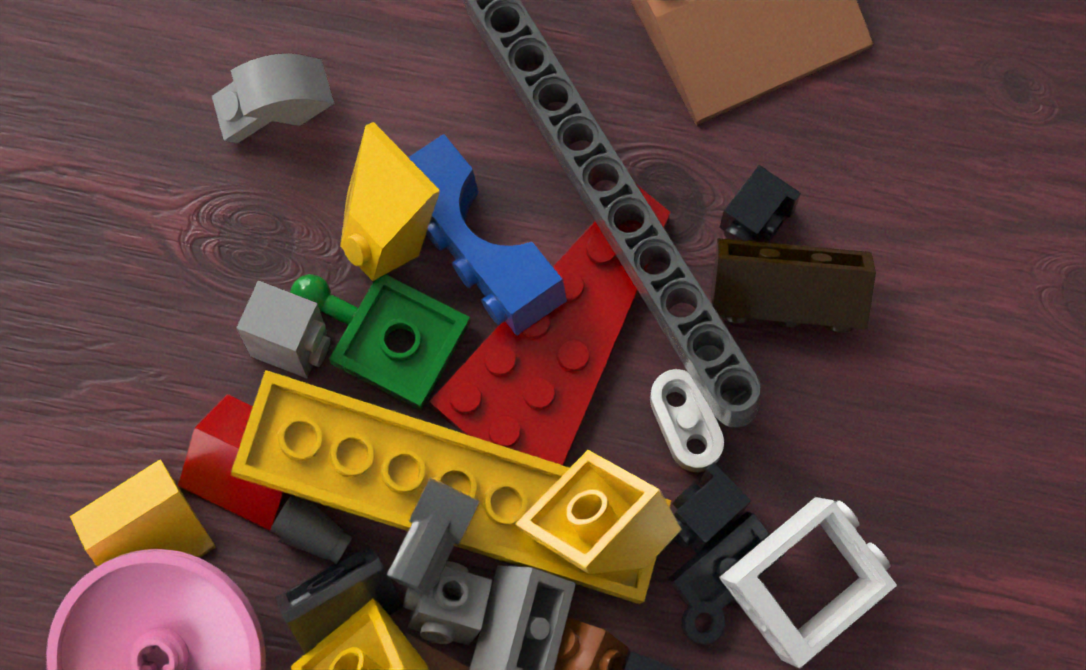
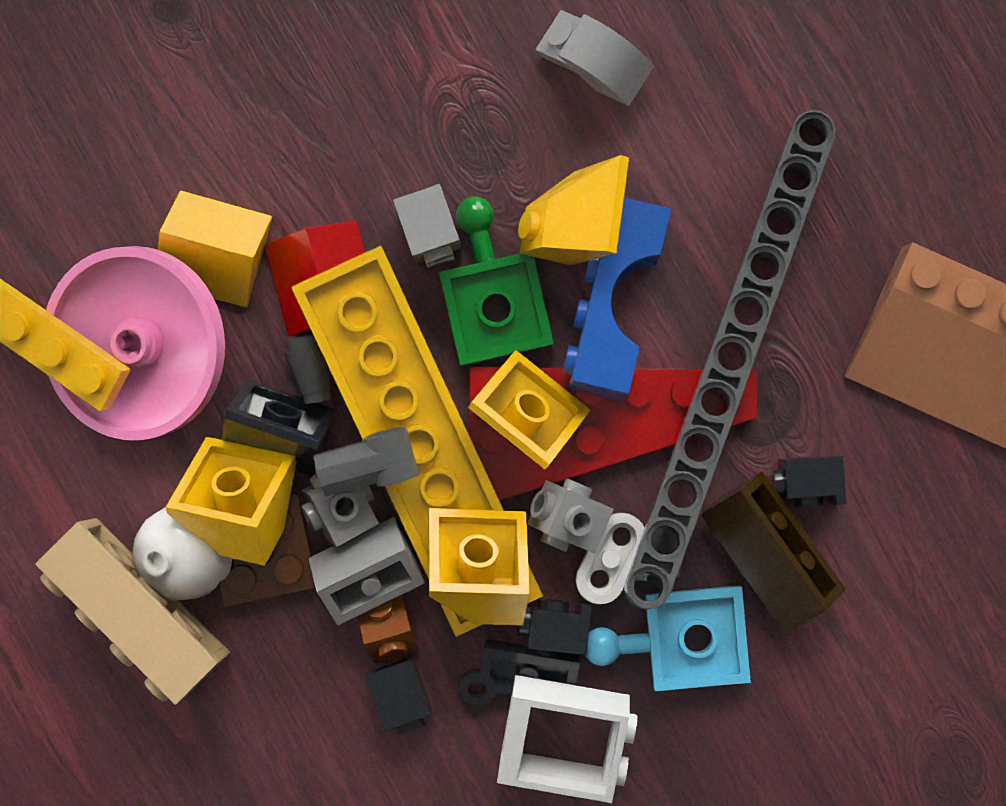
camera: 45 degrees right, 15 degrees up
(507, 379) = (529, 409): none -> yellow slope
(622, 420) = (569, 516): none -> light grey brick
(811, 441) = (672, 663): none -> medium azure plate

